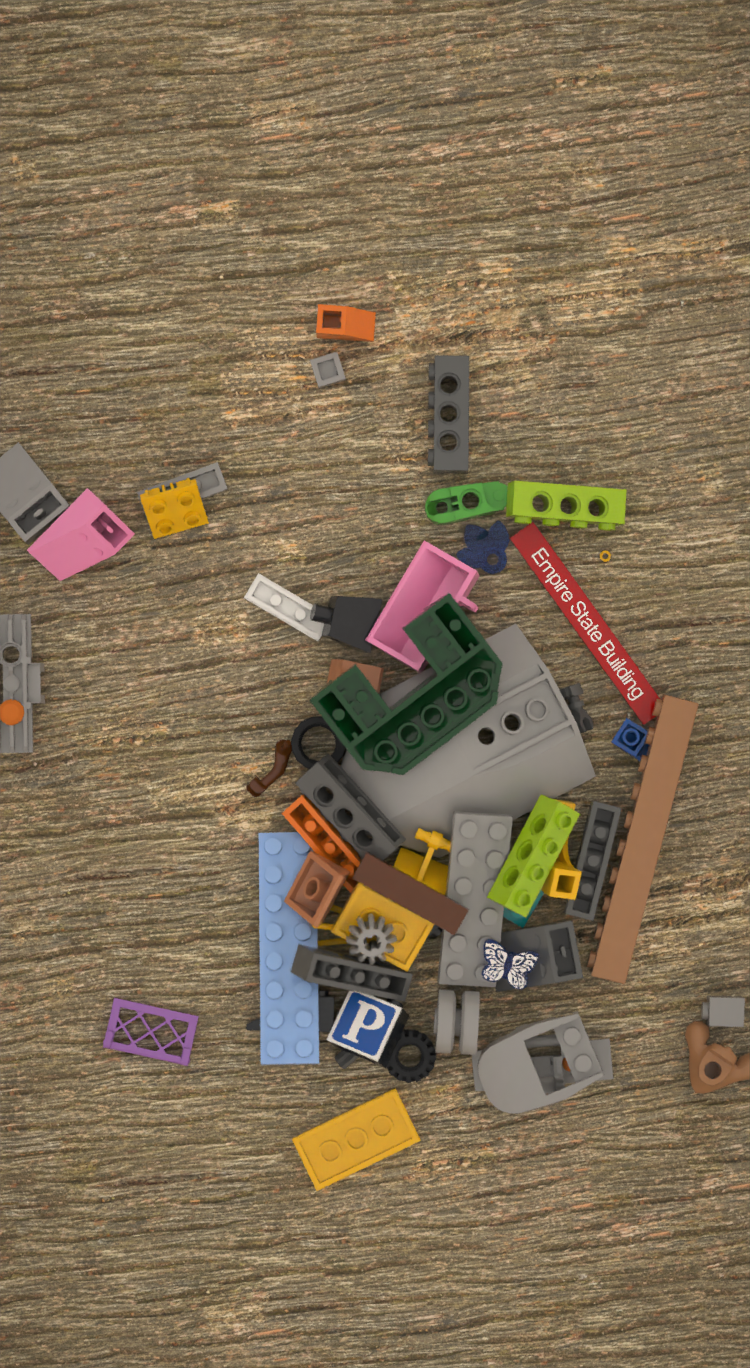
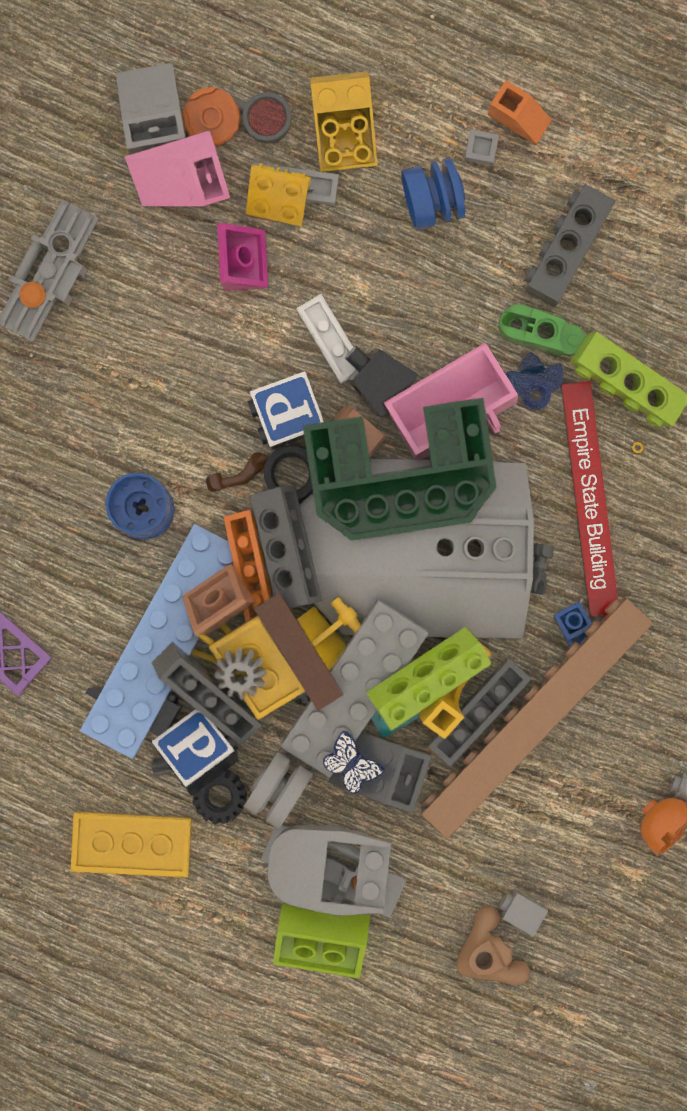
camera: 30 degrees right, 0 degrees up
(78, 468) = (213, 111): none -> orange tile
(124, 445) = (265, 117): none -> piece
(173, 579) = (242, 257): none -> dark pink slope
(190, 835) = (141, 490): none -> blue wheel
(195, 412) = (344, 121): none -> yellow slope
(283, 692) = (284, 410): none -> piece
(309, 435) = (433, 193): none -> blue wheel
(565, 1131) = (321, 941): none -> lime slope

